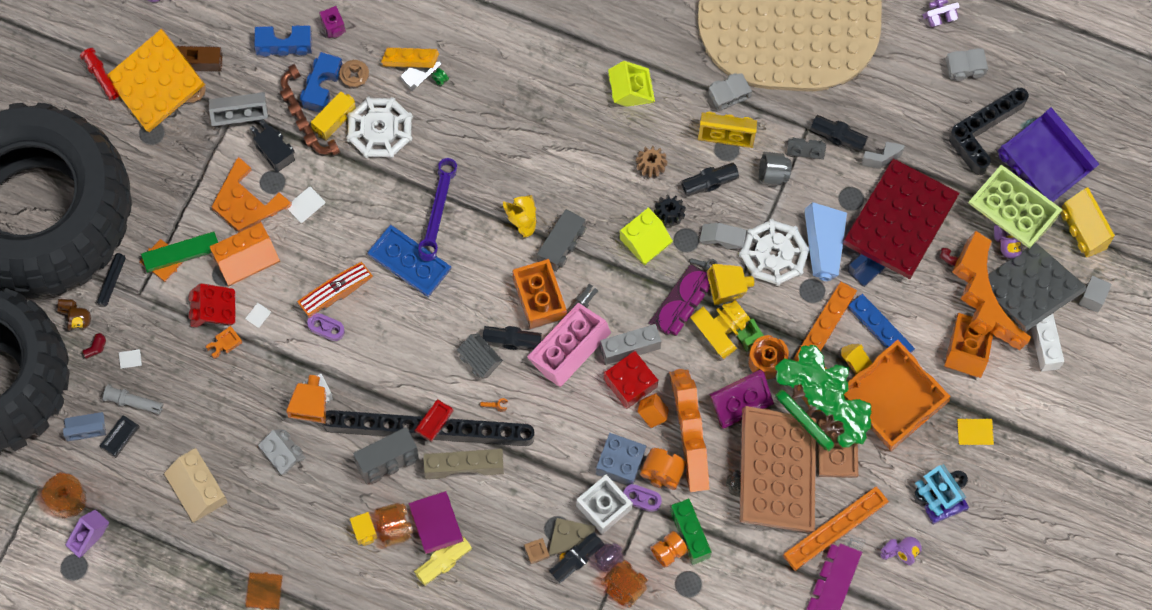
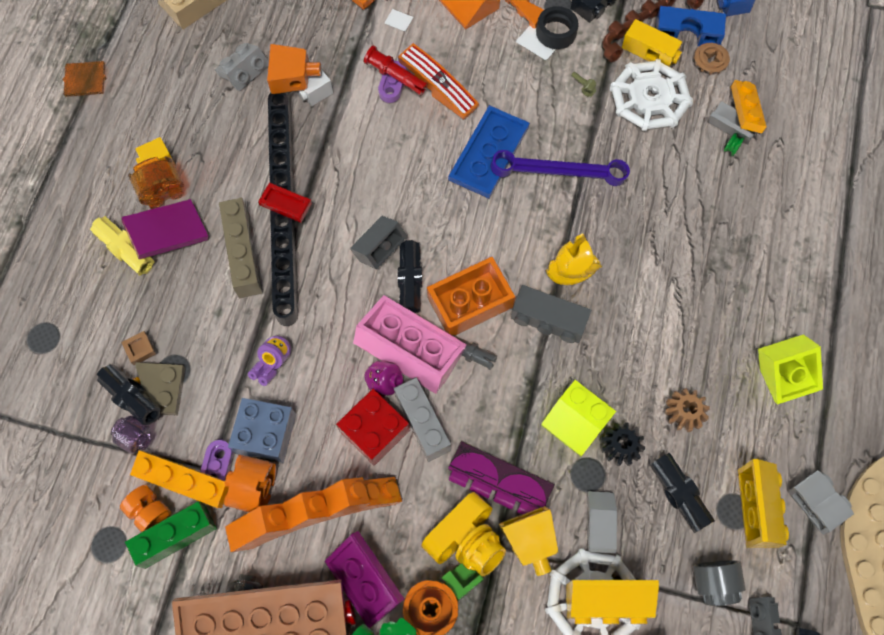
camera: 85 degrees right, 0 degrees up
(294, 173) = (561, 15): none -> black tyre
(316, 325) = (386, 65): none -> red pin
(332, 22) = (769, 24): magenta brick -> none
(361, 172) = (588, 86): none -> olive hand
(386, 456) = (236, 160): dark grey brick -> none
(495, 404) = (323, 273): orange hand -> none
(562, 447) = (271, 356): none -> medium lavender piece
(593, 367) = (383, 377): none -> magenta head
(604, 504) = (198, 416): white brick -> none
(624, 583) = (91, 457): clear orange brick -> none
(649, 523) = (180, 479): none -> light orange plate
(653, 410) = (336, 462): orange panel -> none
(703, 263) = (557, 501): dark grey hand -> none
(779, 237) = (612, 600): none -> yellow slope

